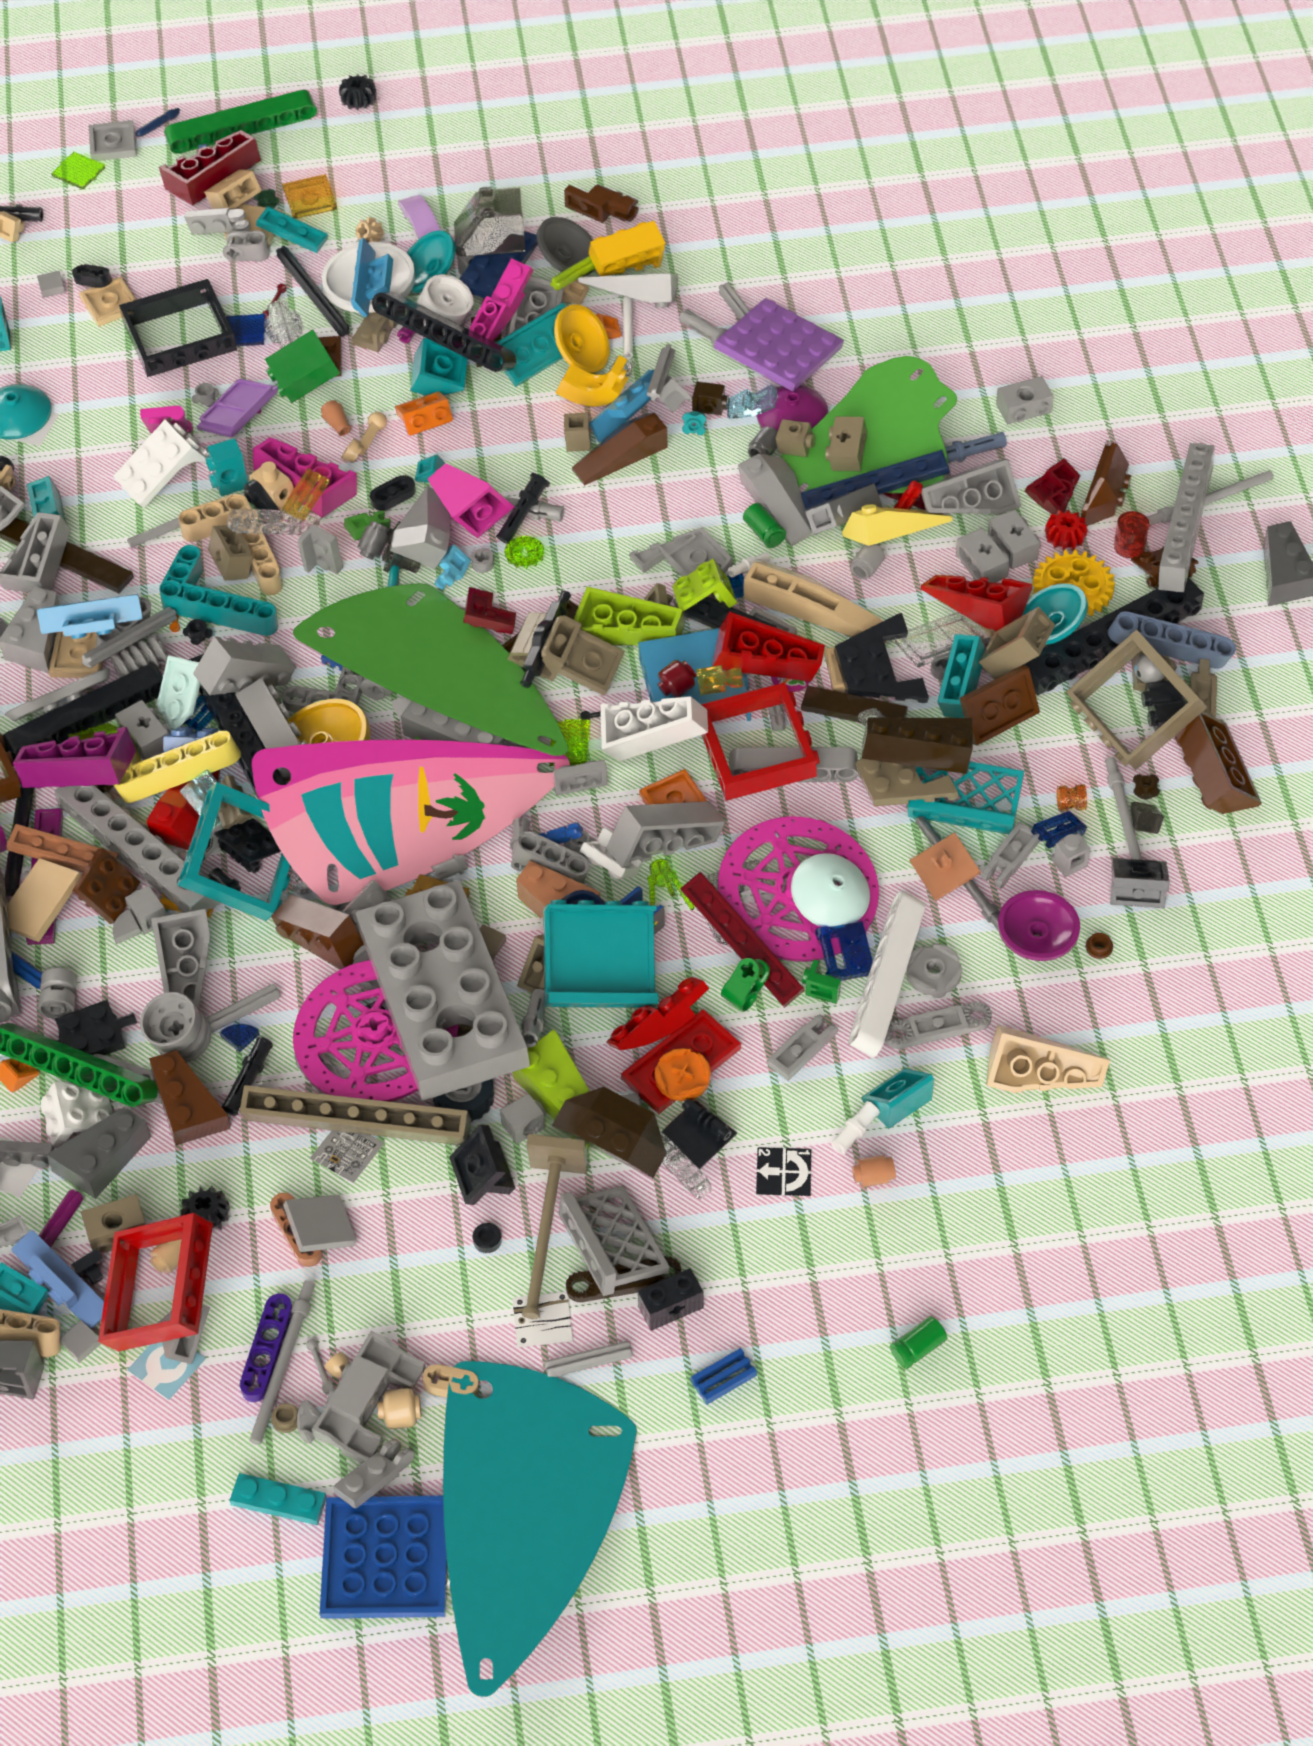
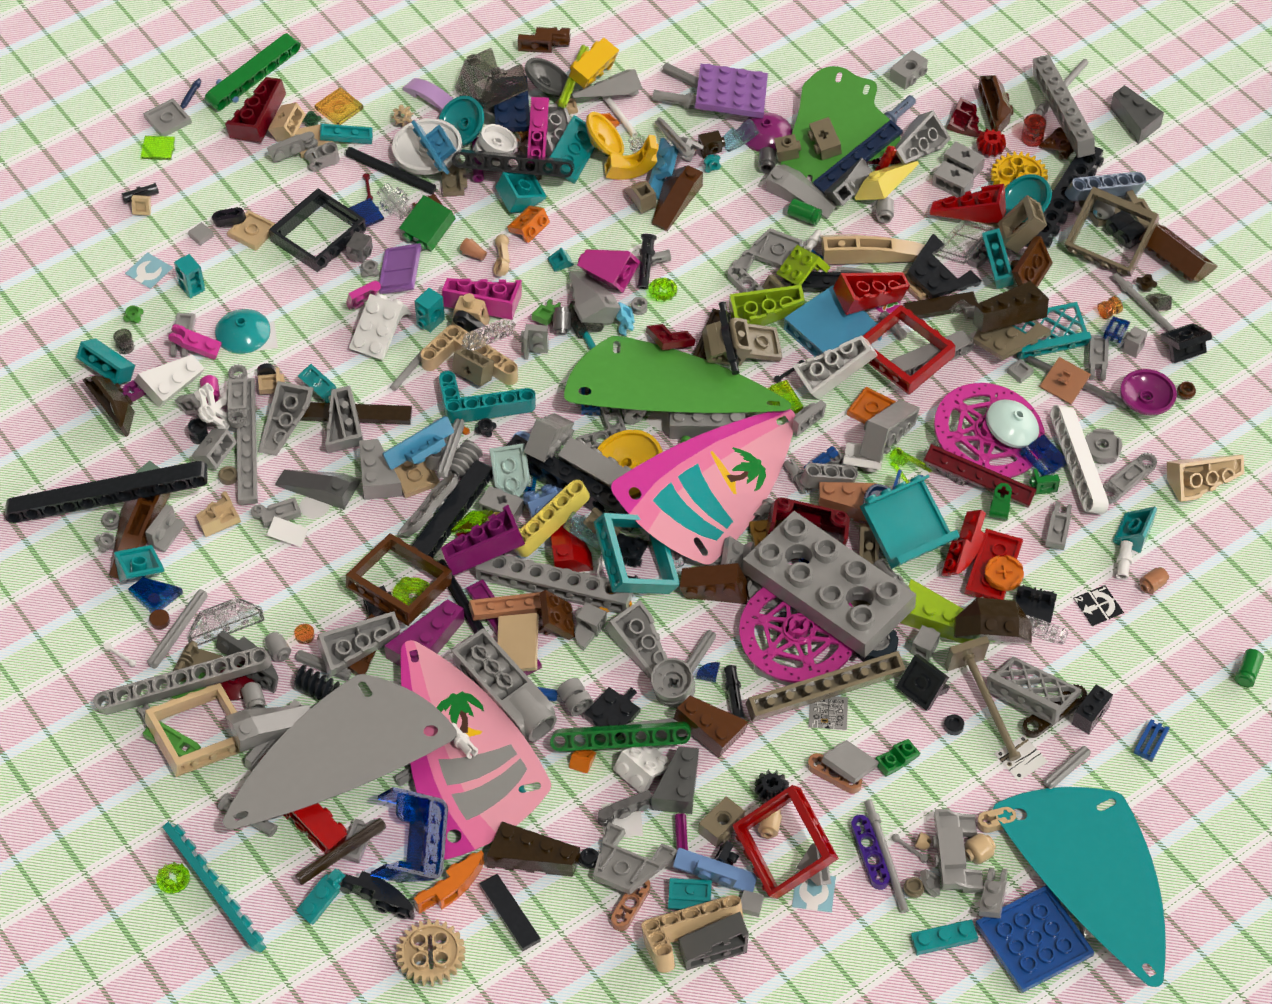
camera: 30 degrees left, 0 degrees up
(208, 365) = (359, 247): none -> flat silver brick
(302, 492) = (503, 292): clear yellow tile -> none
(357, 92) = (320, 22): black gear -> none
(386, 1247) = (897, 758): none -> green slope
(392, 492) = (546, 287): black plate -> none
(488, 896) = (824, 518): none -> dark red windscreen
(632, 578) = (744, 278): none -> light grey beam
(676, 679) = (830, 330): dark red head -> none
(714, 679) = (854, 321): clear yellow plate -> none
(897, 830) = (1020, 371): none -> light grey tile

